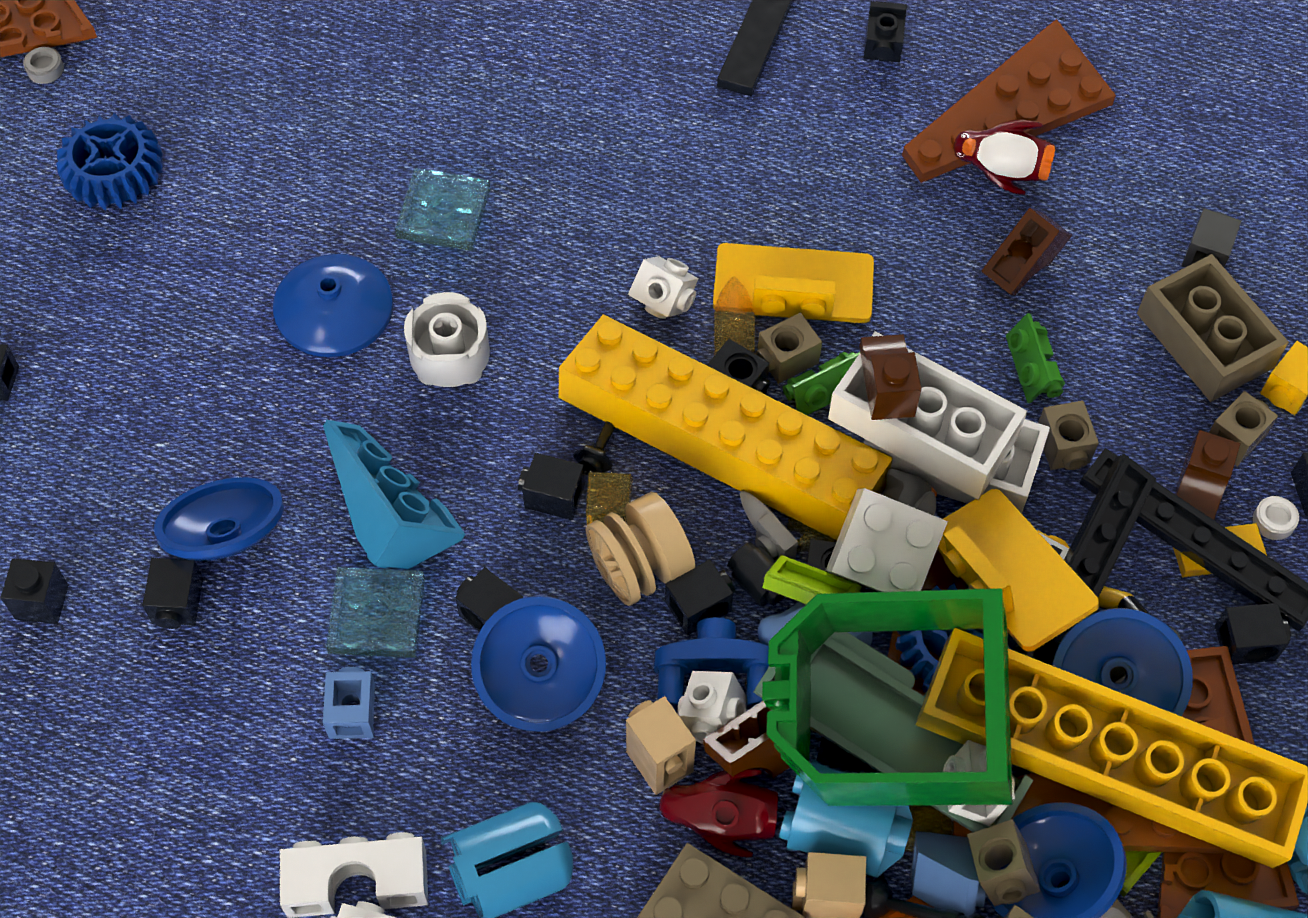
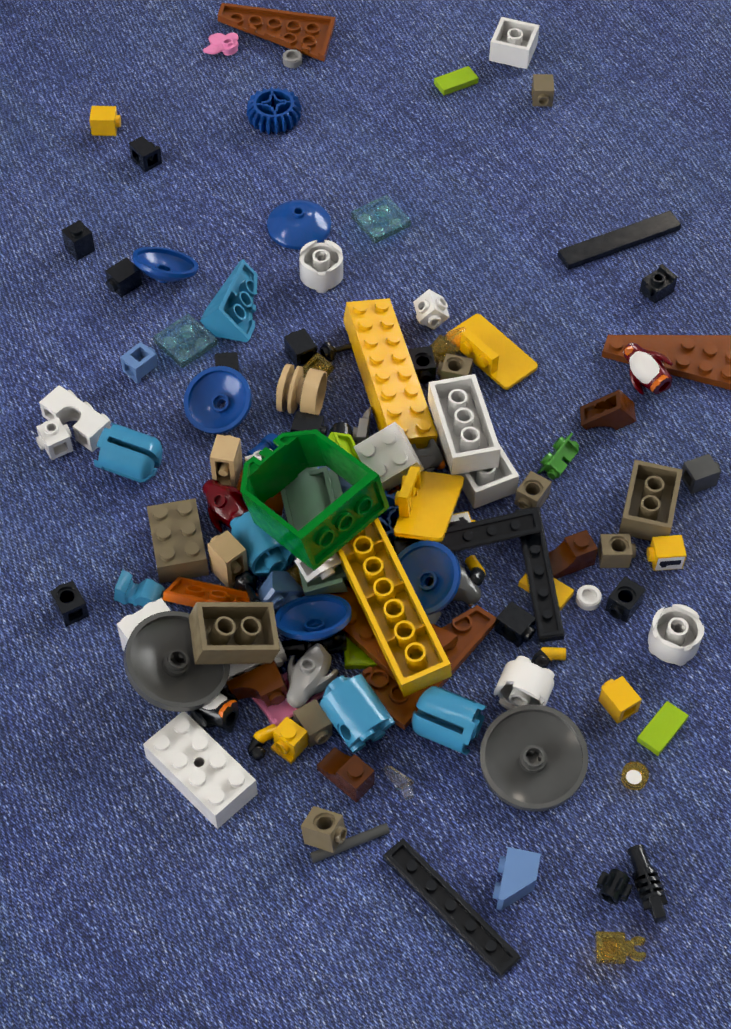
camera: 45 degrees right, 5 degrees down
(890, 377) = (454, 390): reddish brown arch -> none
(998, 847) = (295, 596): dark tan brick -> none

